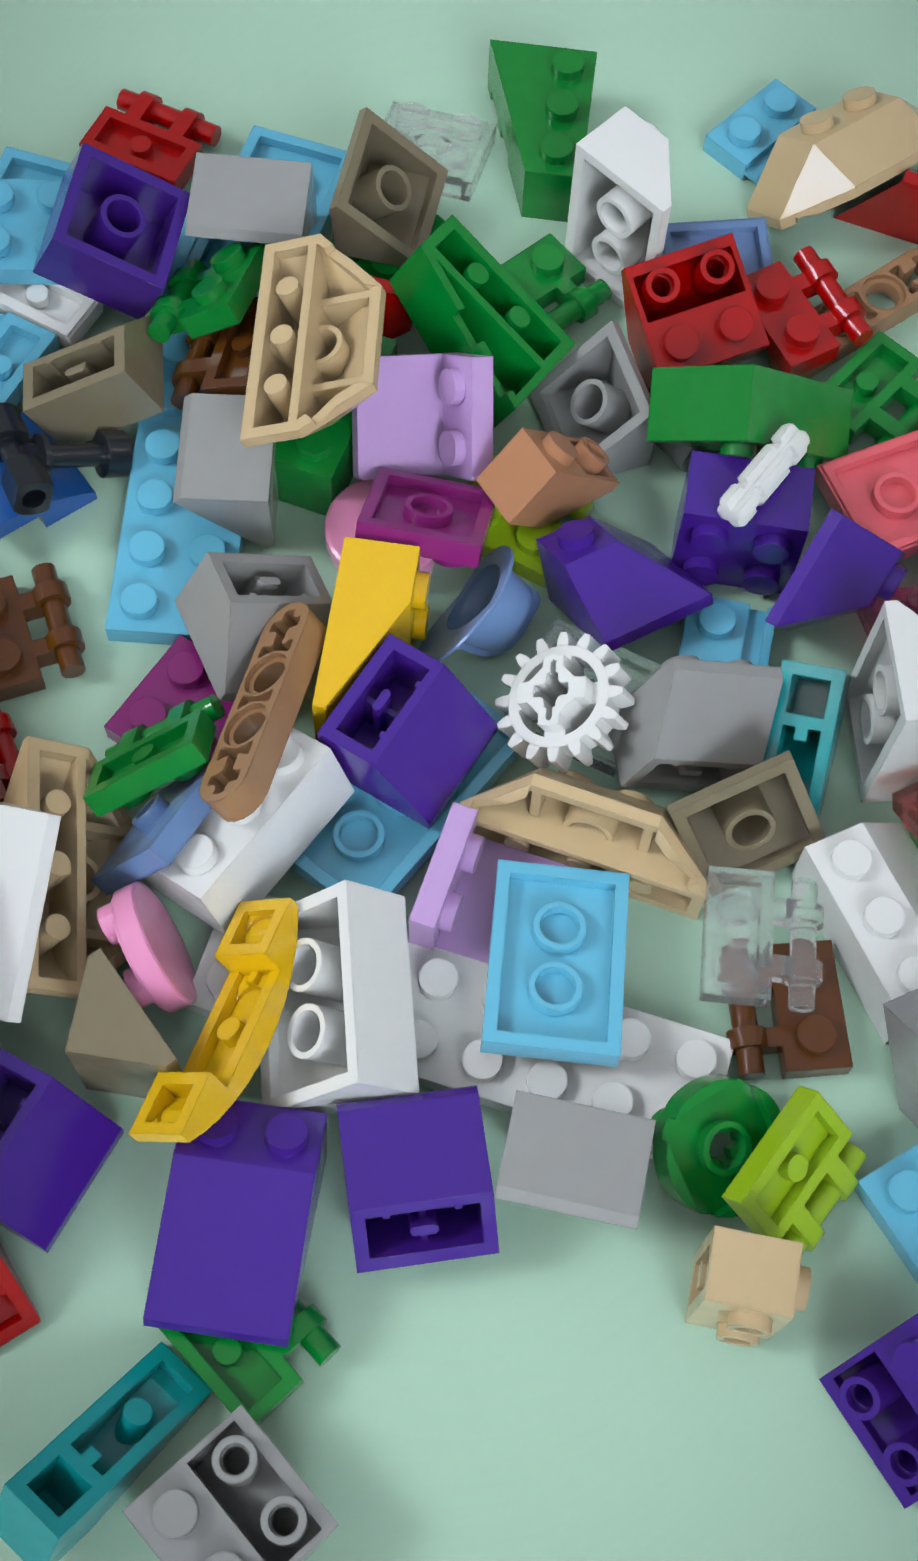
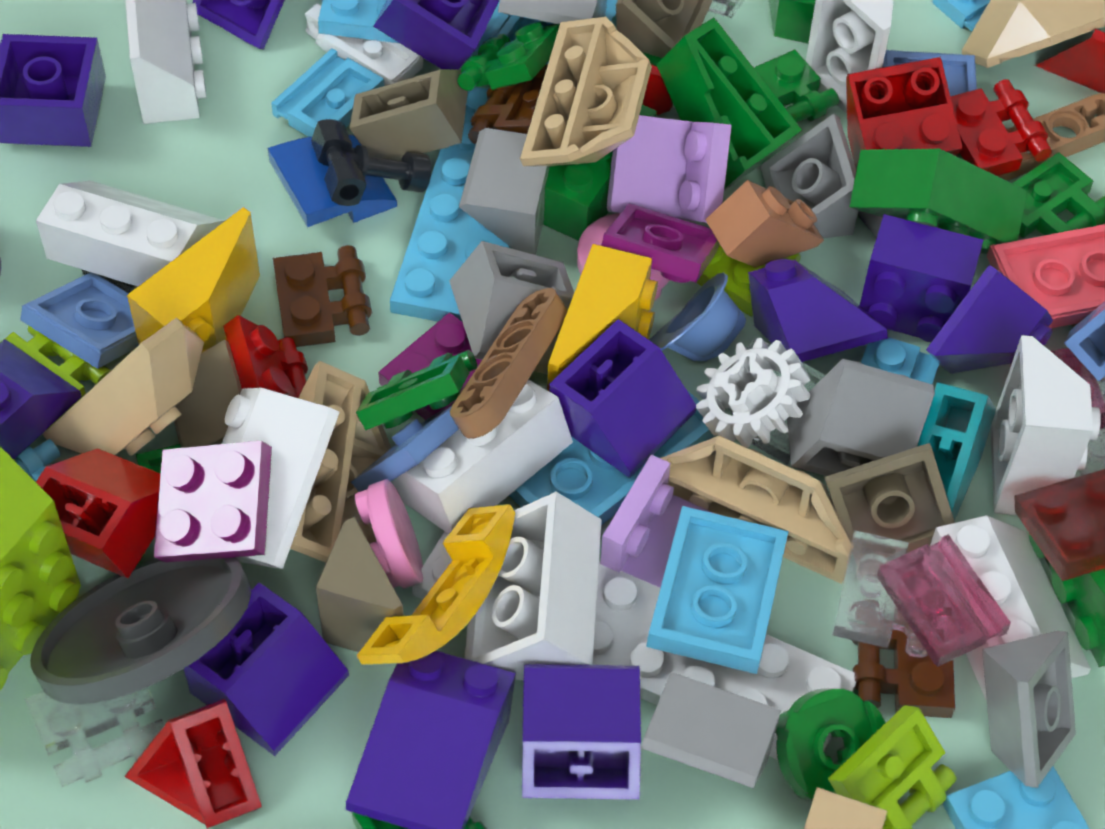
camera: 10 degrees right, 10 degrees down
(763, 475) = (938, 237): white axle -> none
(828, 947) = (943, 600): none -> clear pink plate

